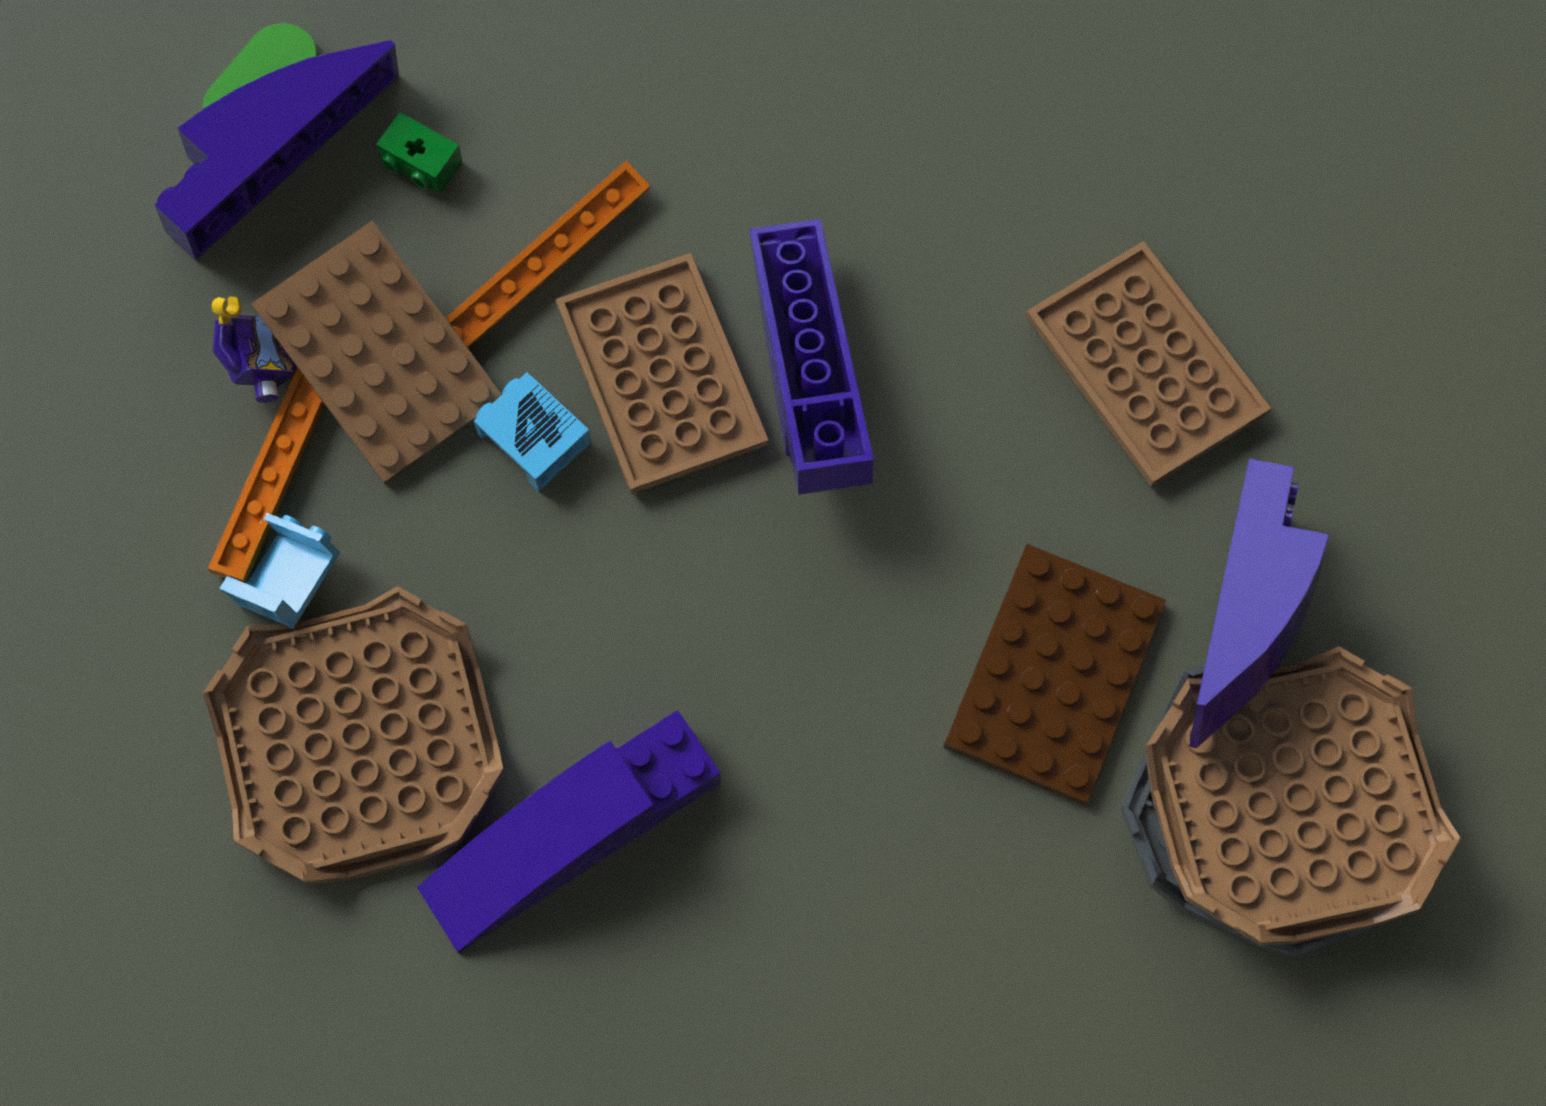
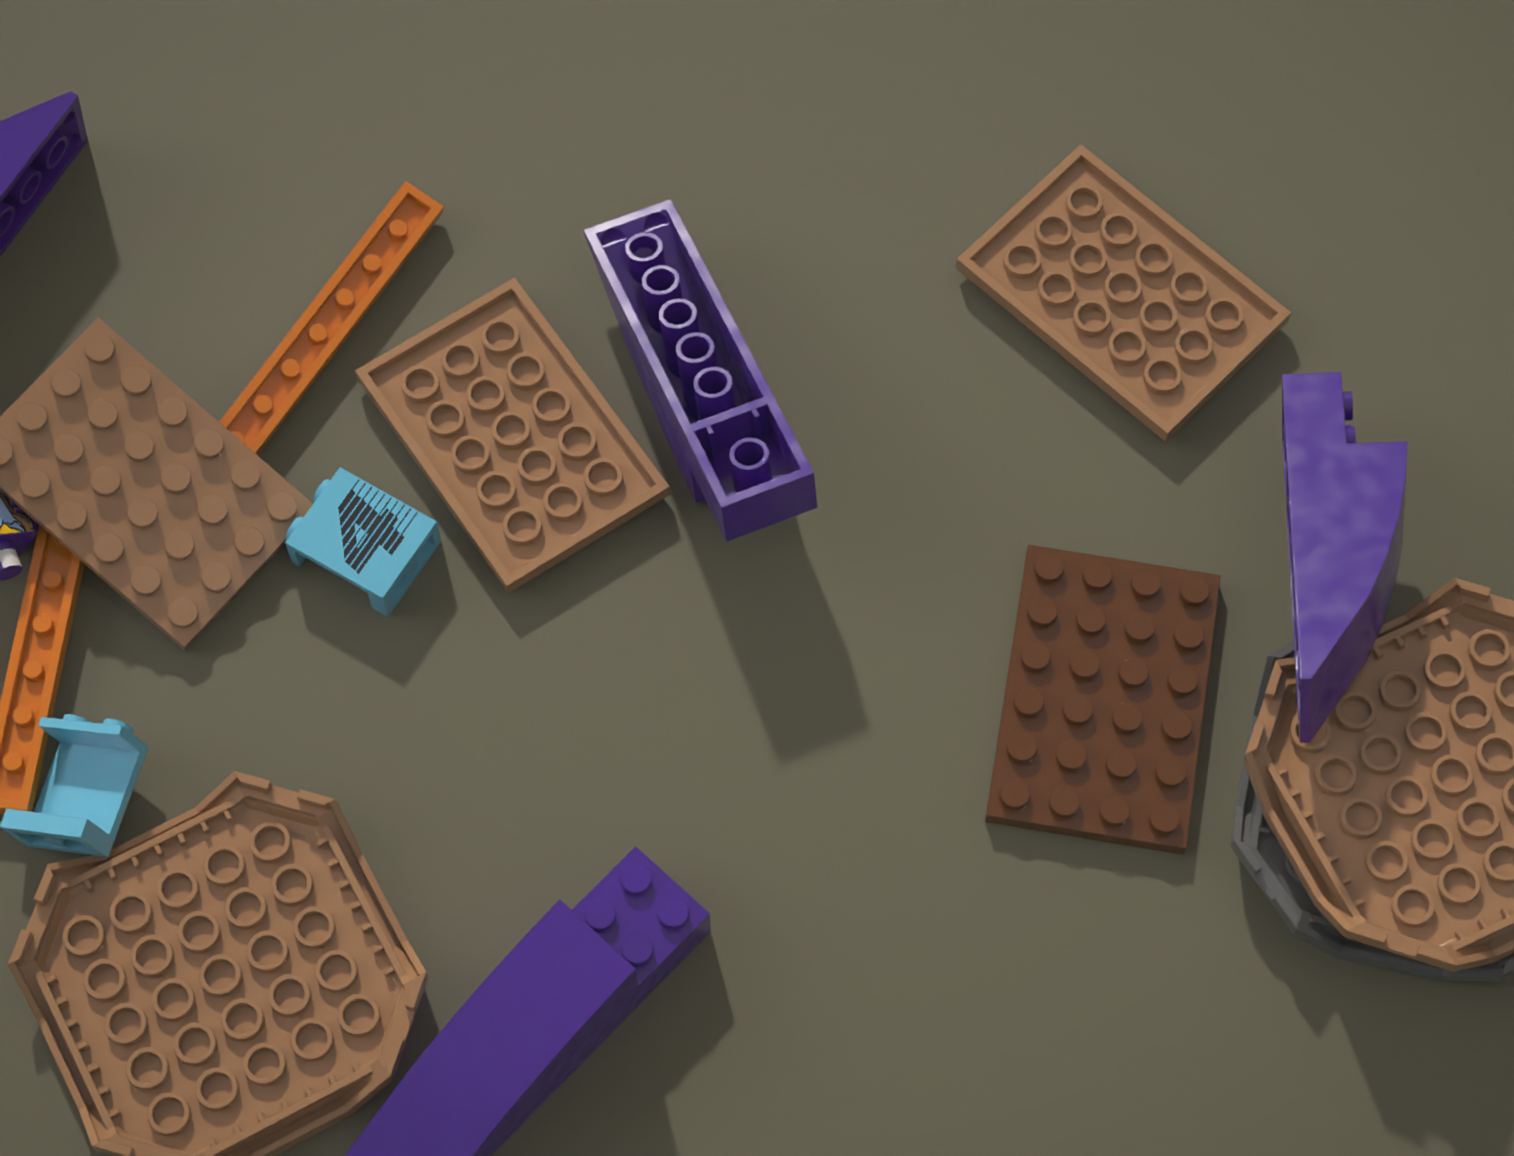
camera: 10 degrees left, 5 degrees down
(419, 153) = (137, 228): green brick -> none

